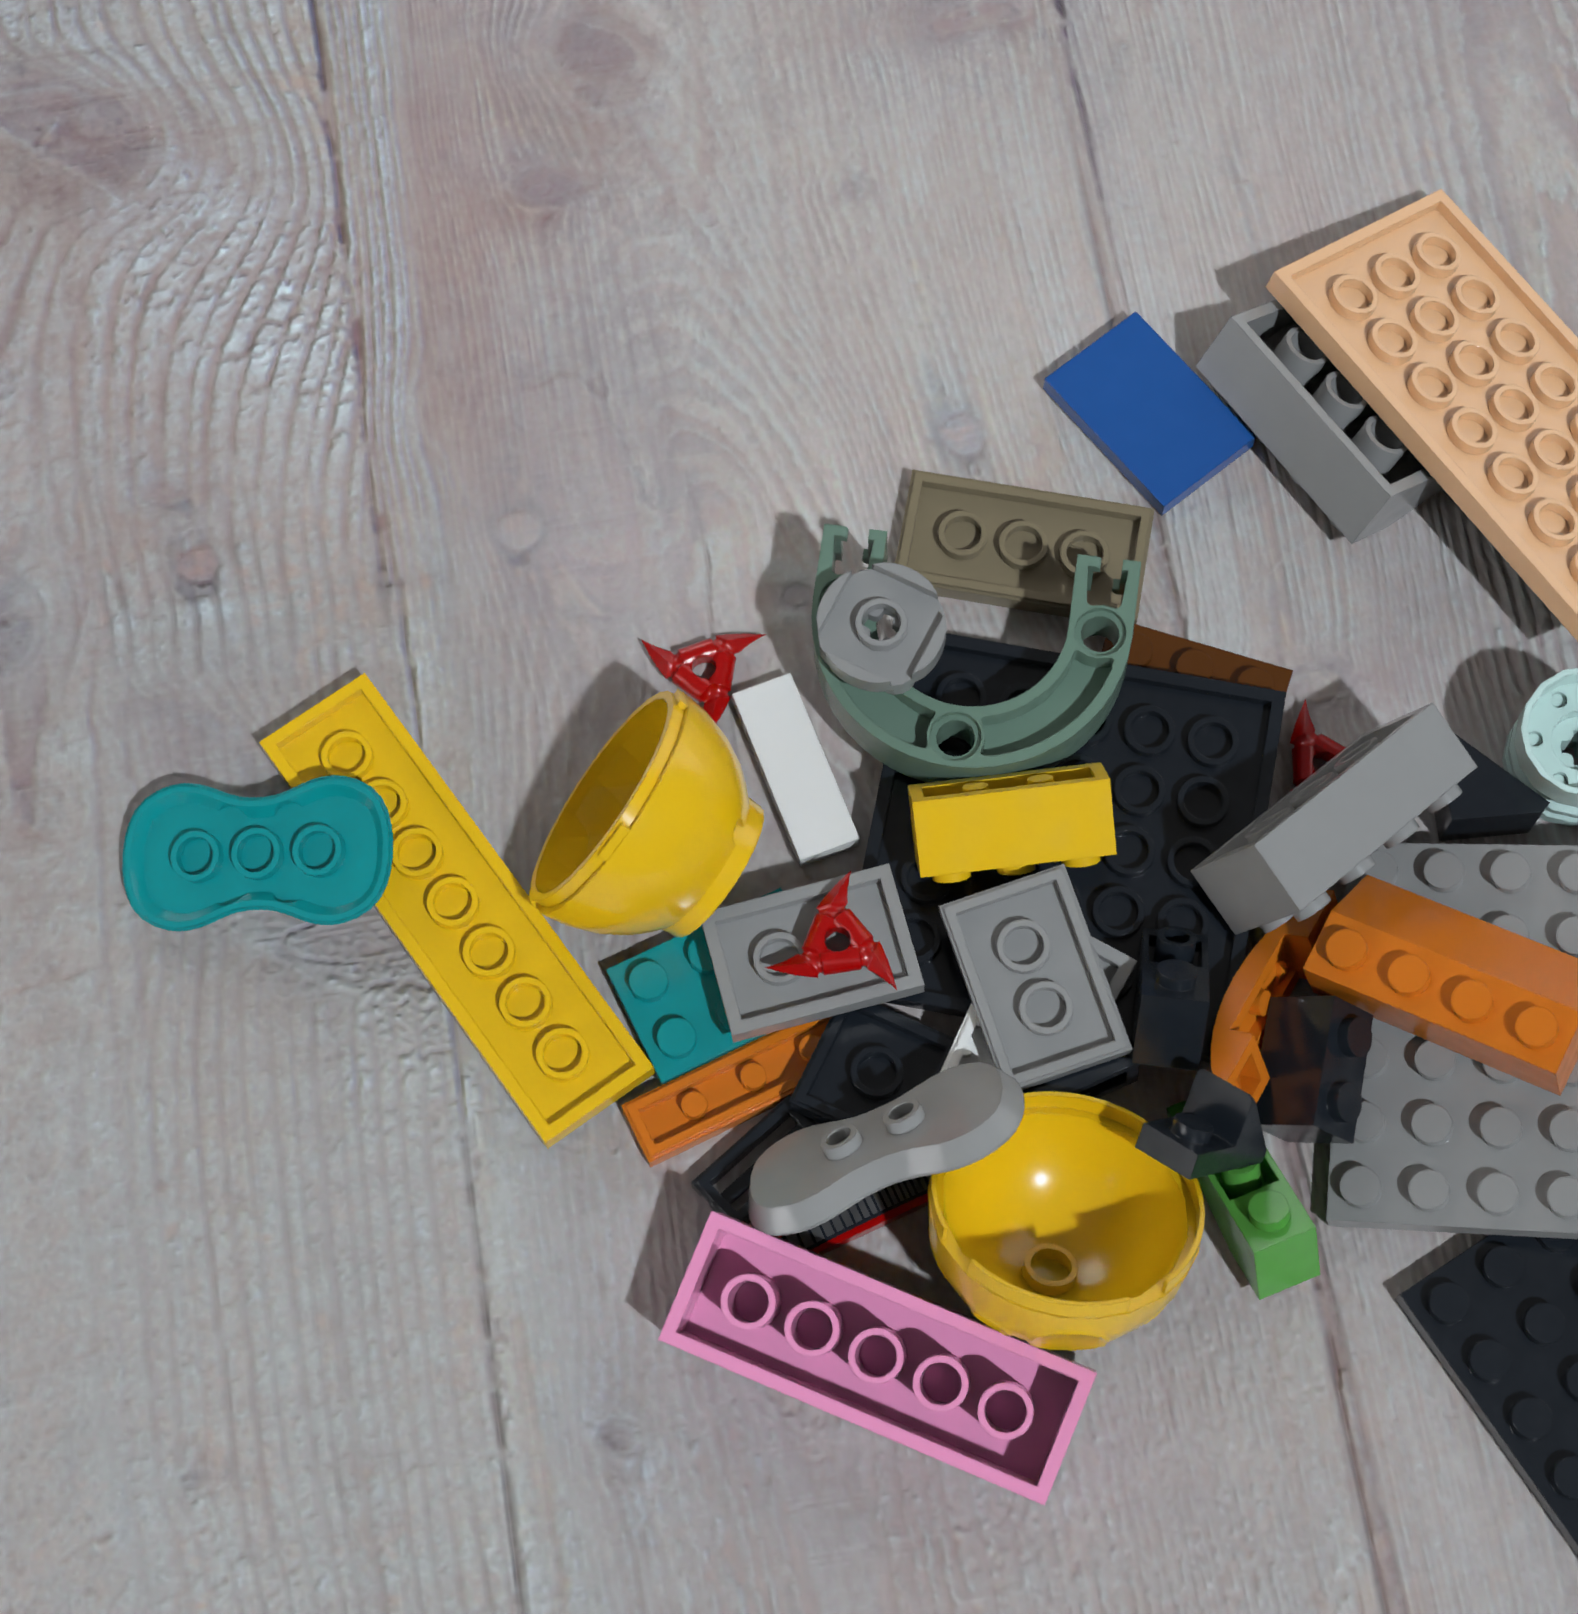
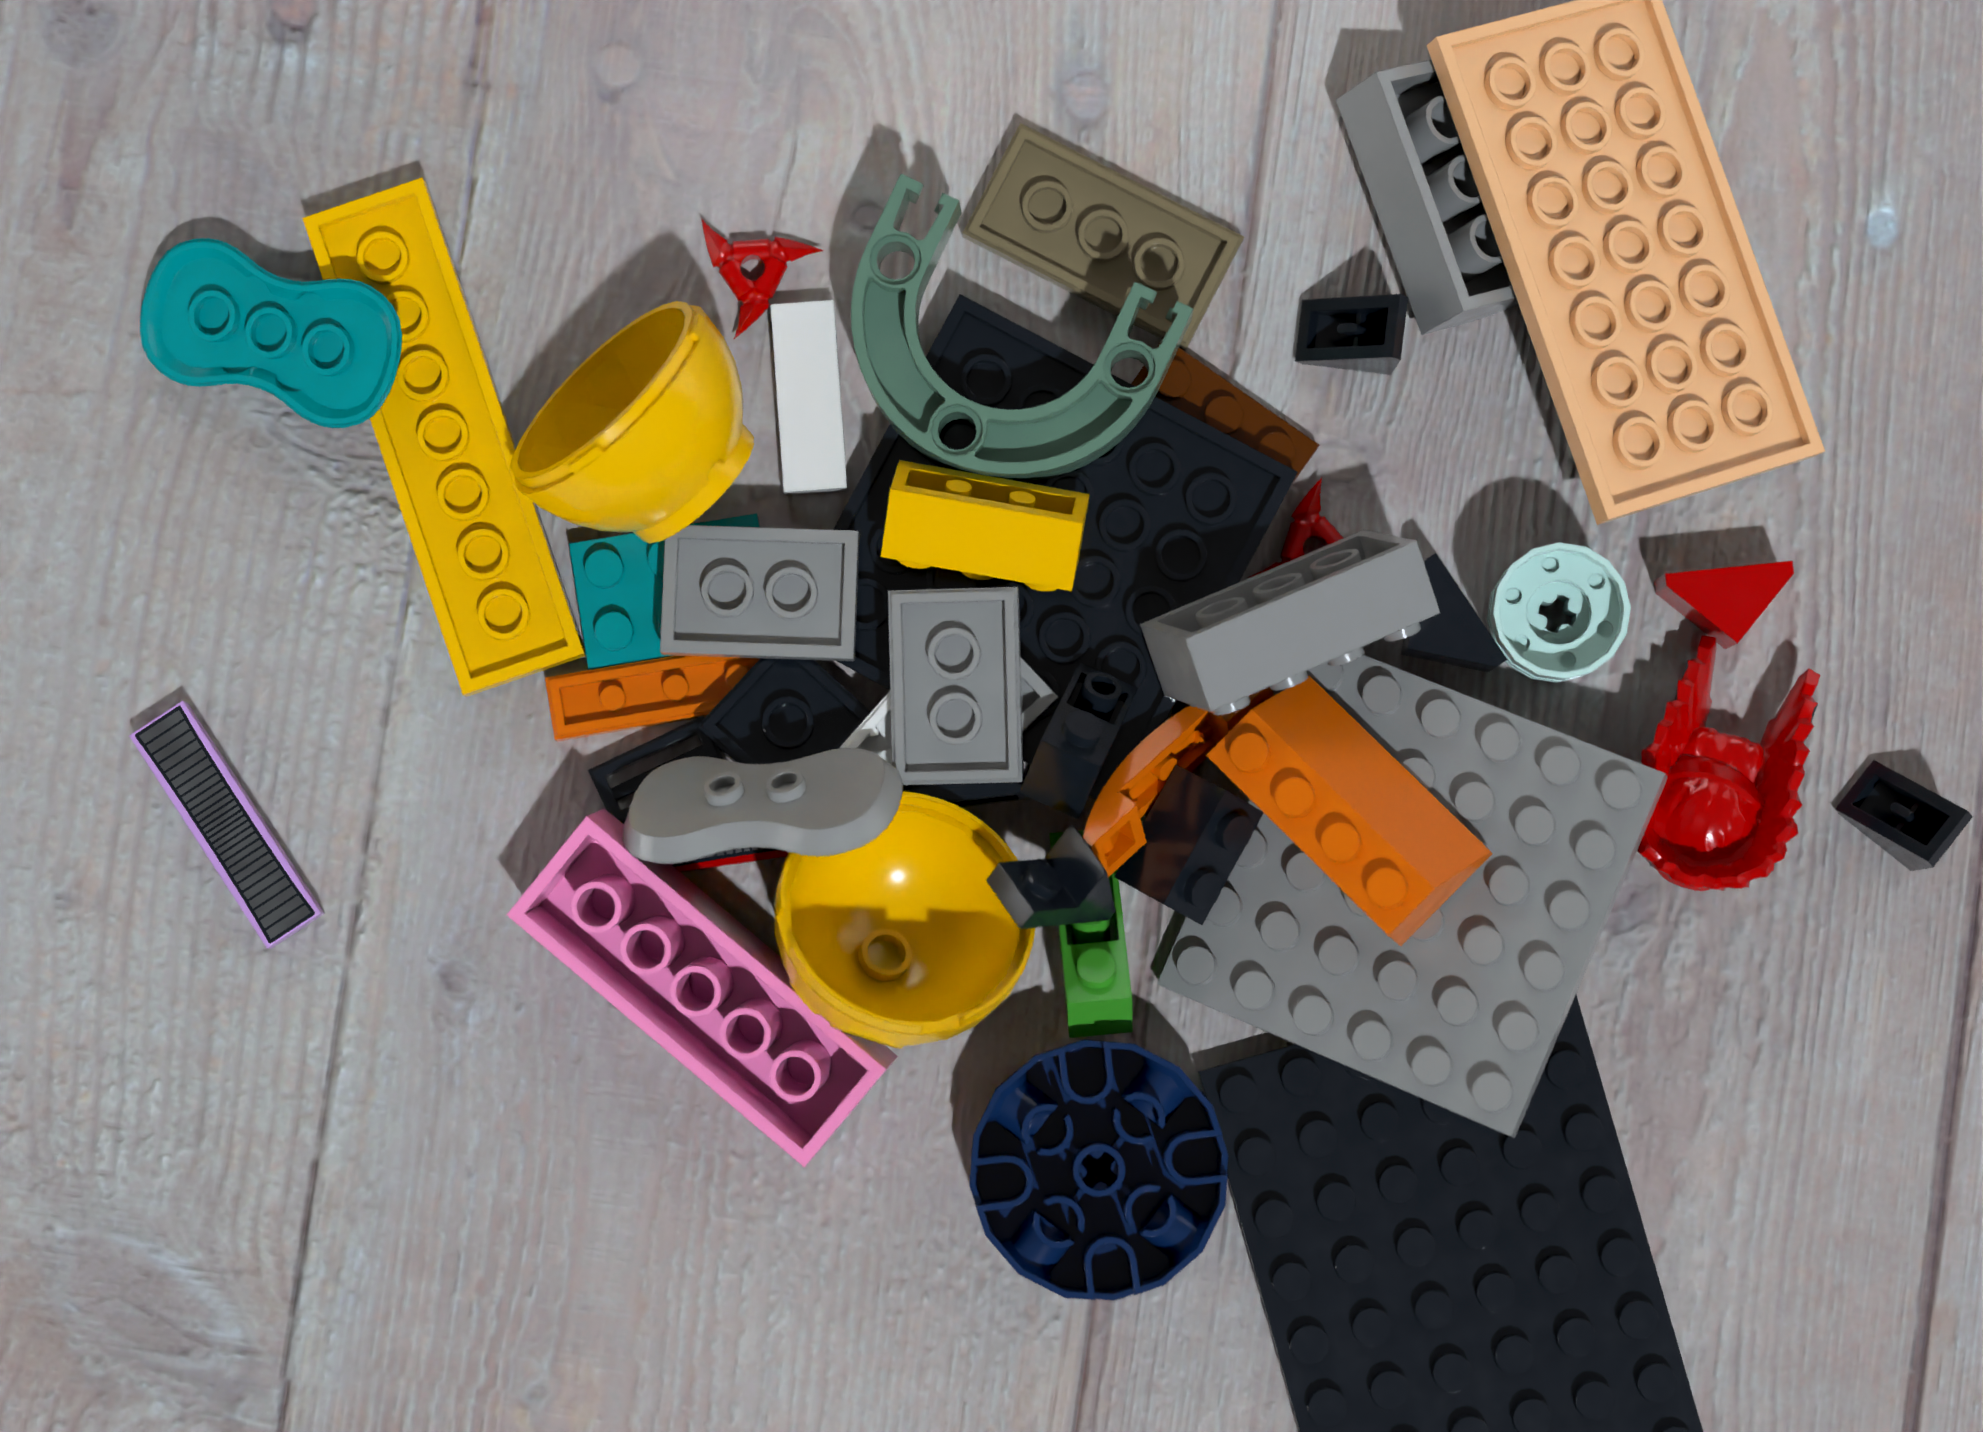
camera: 15 degrees right, 15 degrees up
(341, 1349) = (226, 824): none -> tile
(836, 918) = (801, 612): red piece -> none
(888, 663) = (917, 265): light grey plate -> none
(1149, 413) = (1275, 131): blue tile -> none
(1291, 559) = (1352, 332): none -> black slope
(1401, 1390) = (1102, 1235): none -> dark blue brick

